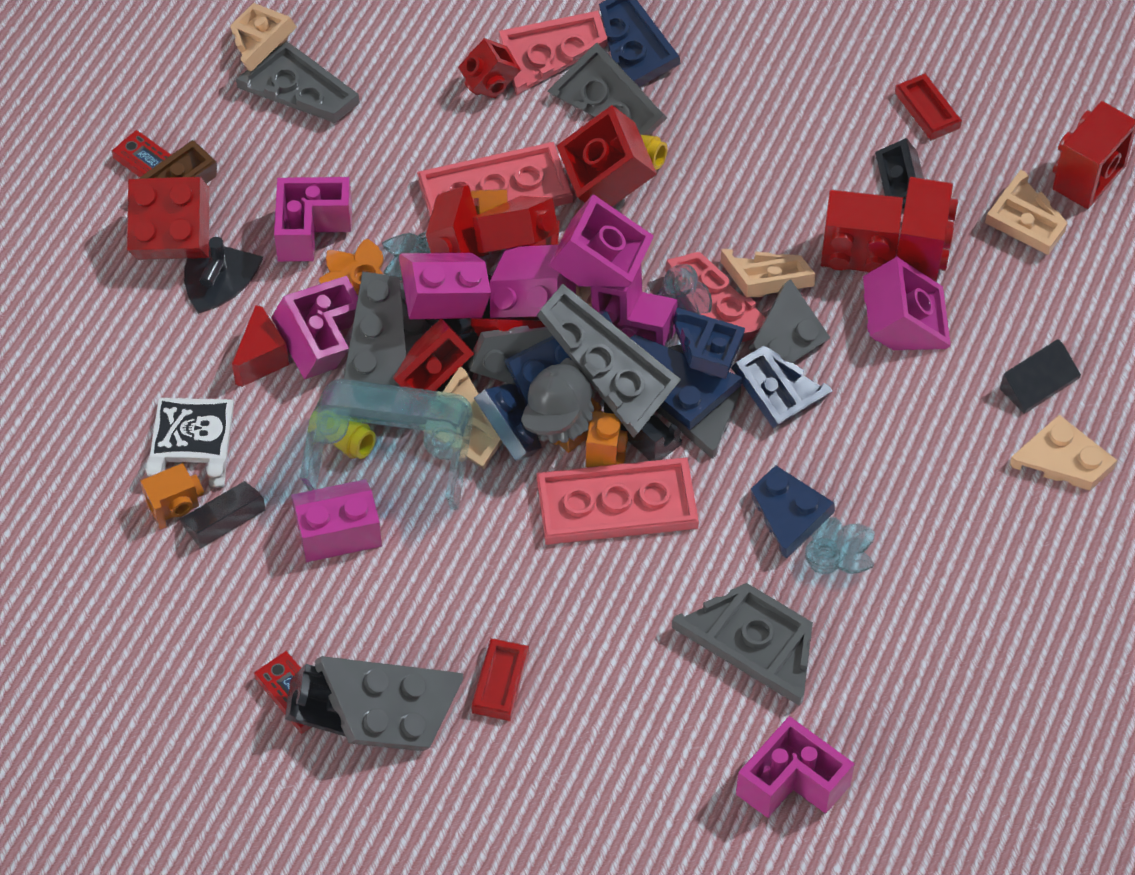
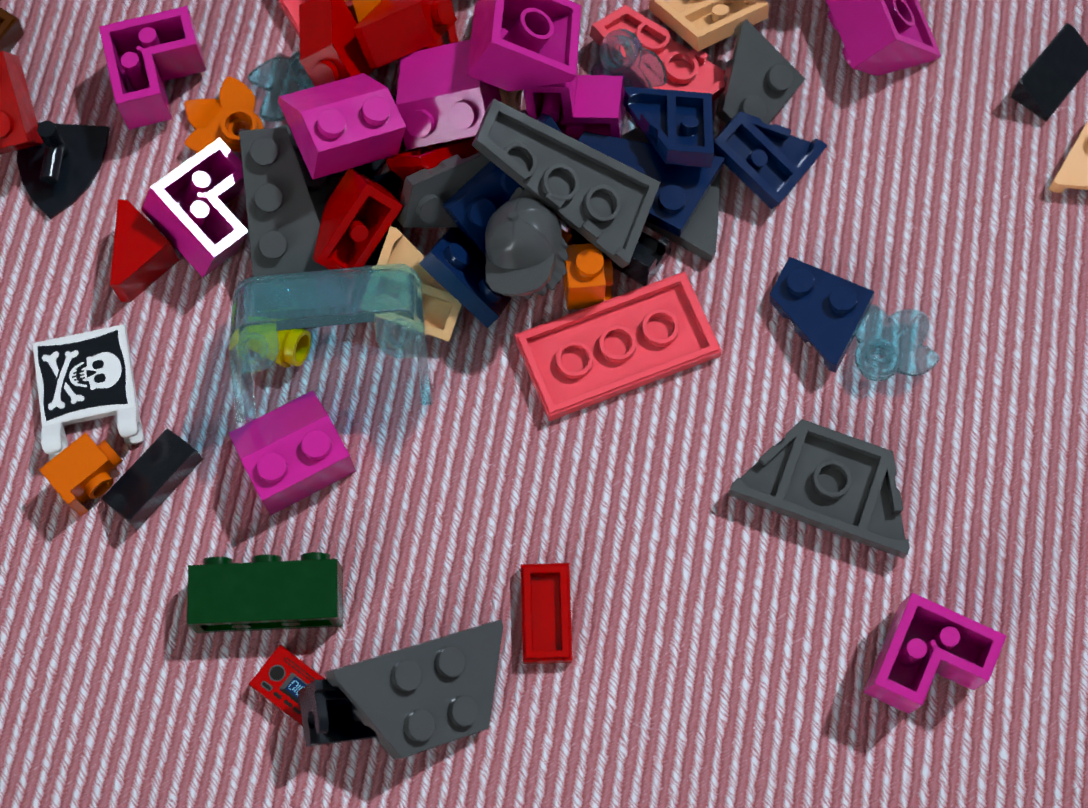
camera: 15 degrees left, 15 degrees up
(286, 612) = (265, 594): none -> dark green brick

